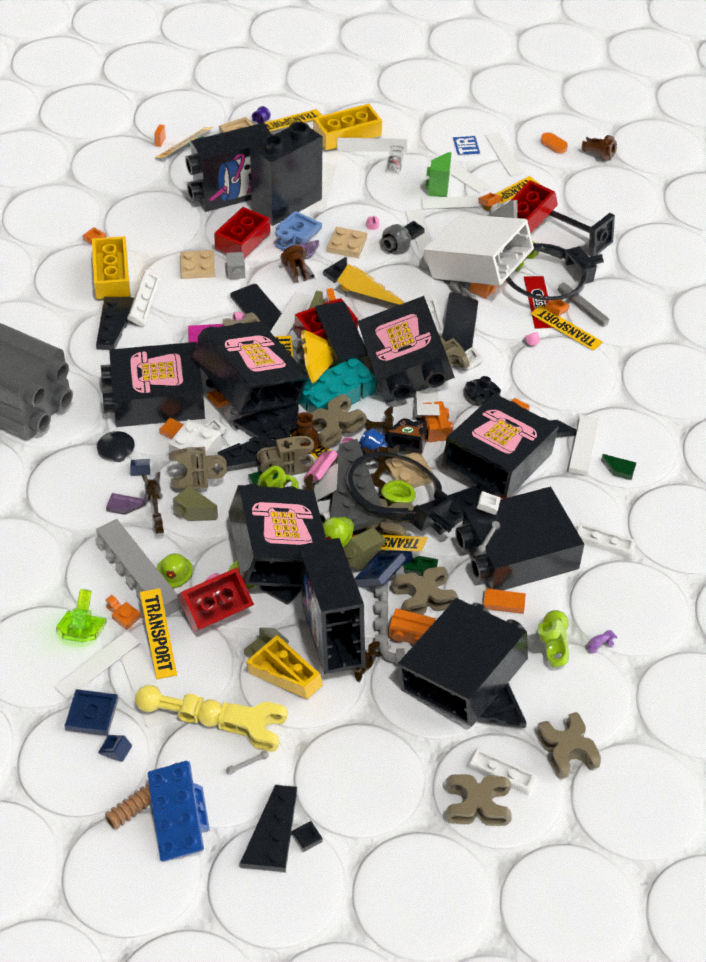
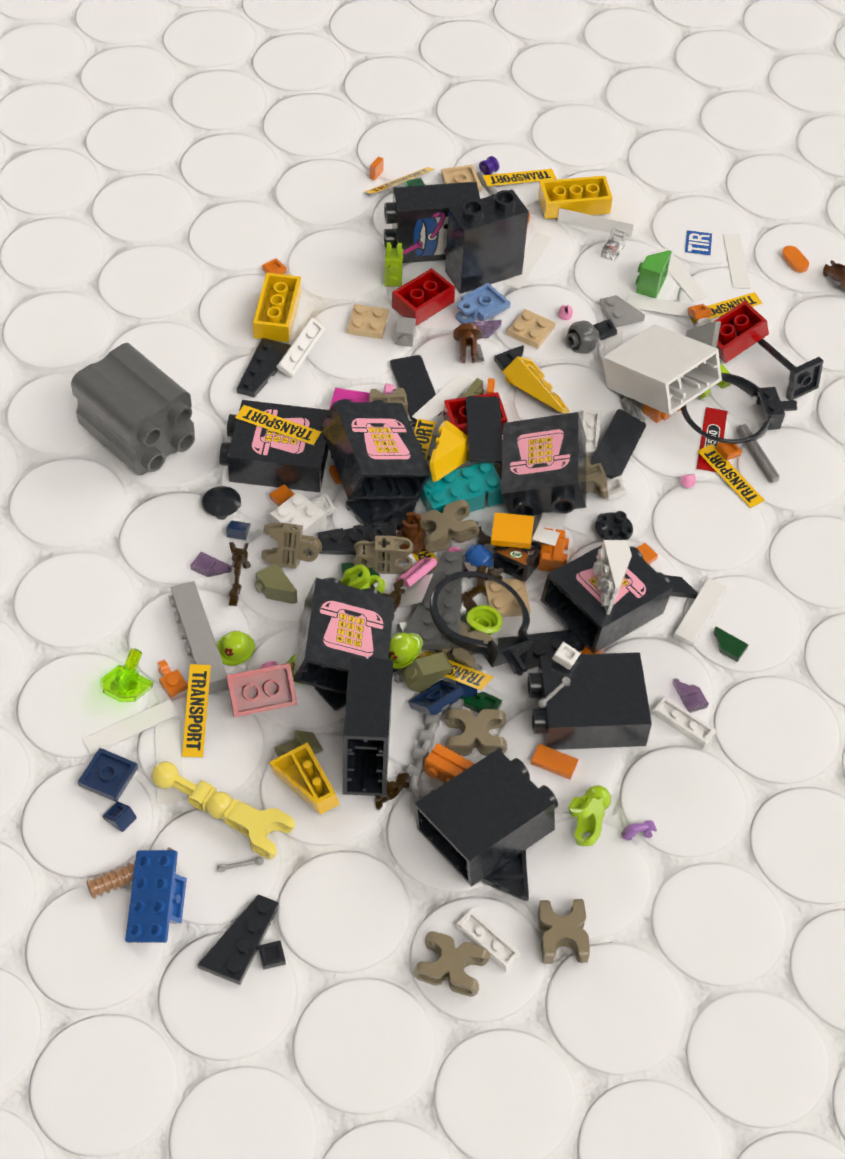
camera: 15 degrees right, 5 degrees up
(151, 364) = (278, 424): none -> yellow sticker
(206, 211) = (393, 265): none -> lime hinge
(397, 410) = (512, 530): none -> light orange tile
(420, 212) = (620, 311): none -> light grey wing
(505, 420) = (611, 570): none -> white slope
(602, 517) = (691, 696): none -> clear purple tile

